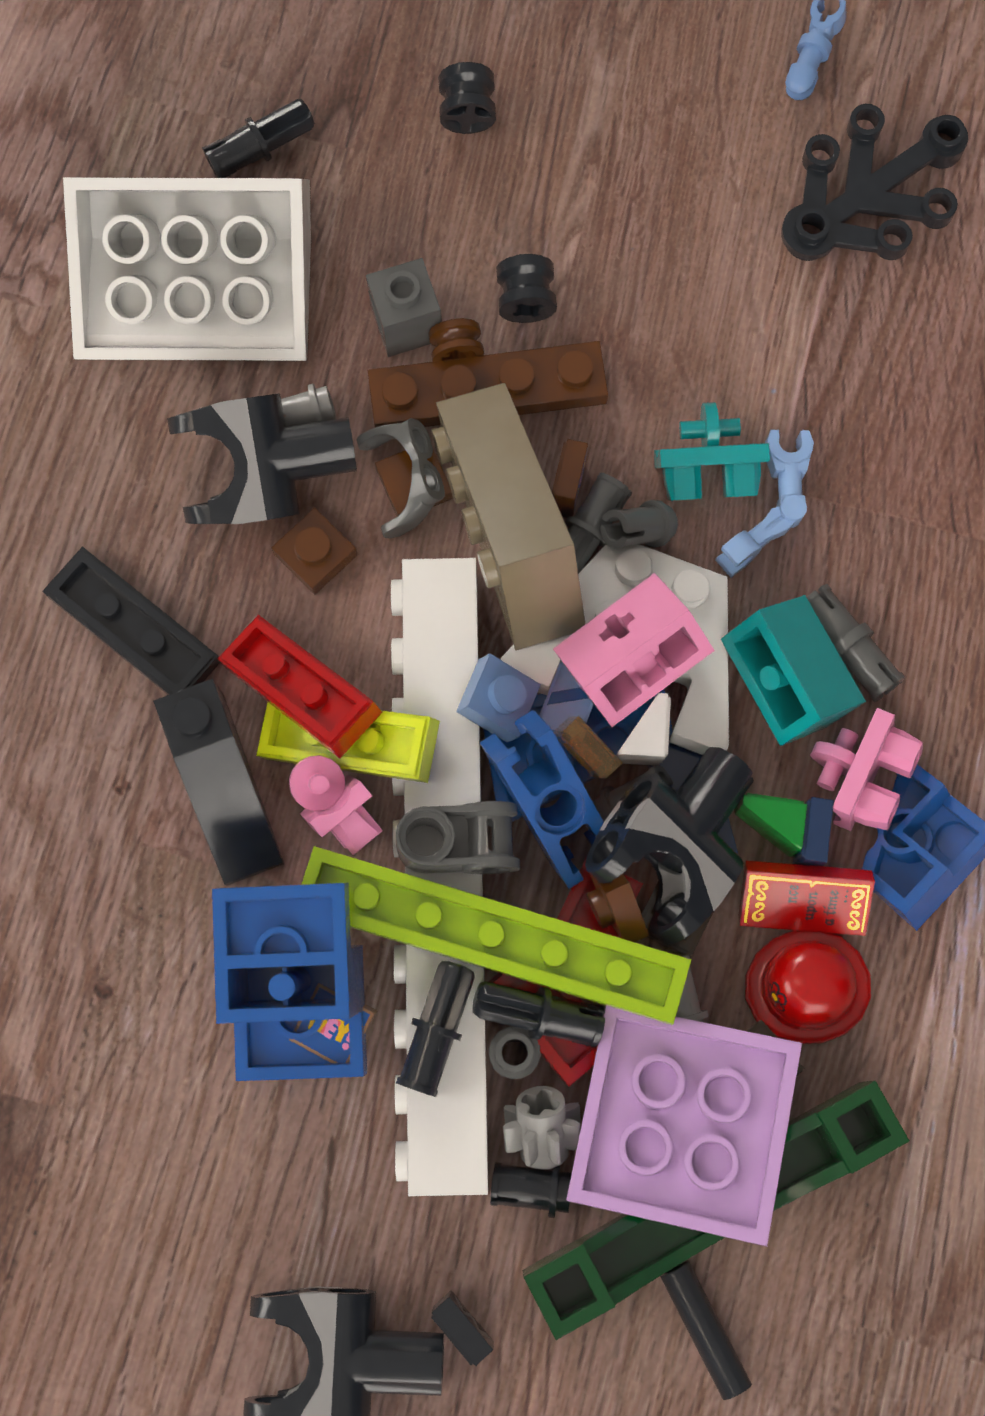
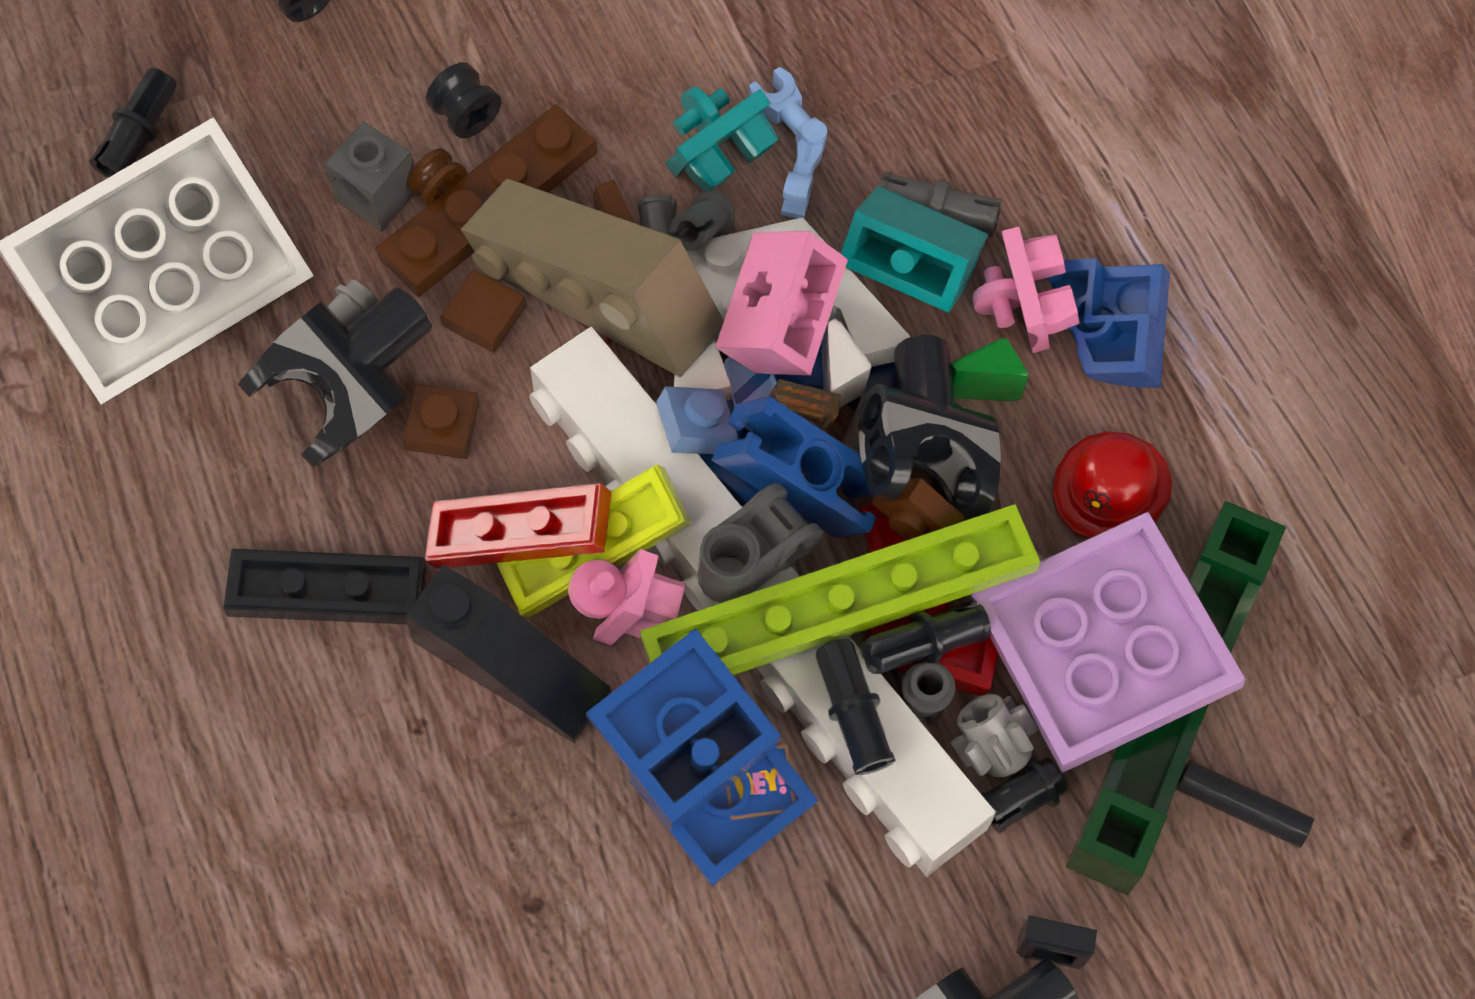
camera: 40 degrees left, 10 degrees down
(423, 491) = (502, 300): dark grey cap -> none
(806, 898) = (1058, 416): tile -> none
(816, 833) = (1037, 364): dark blue tile -> none

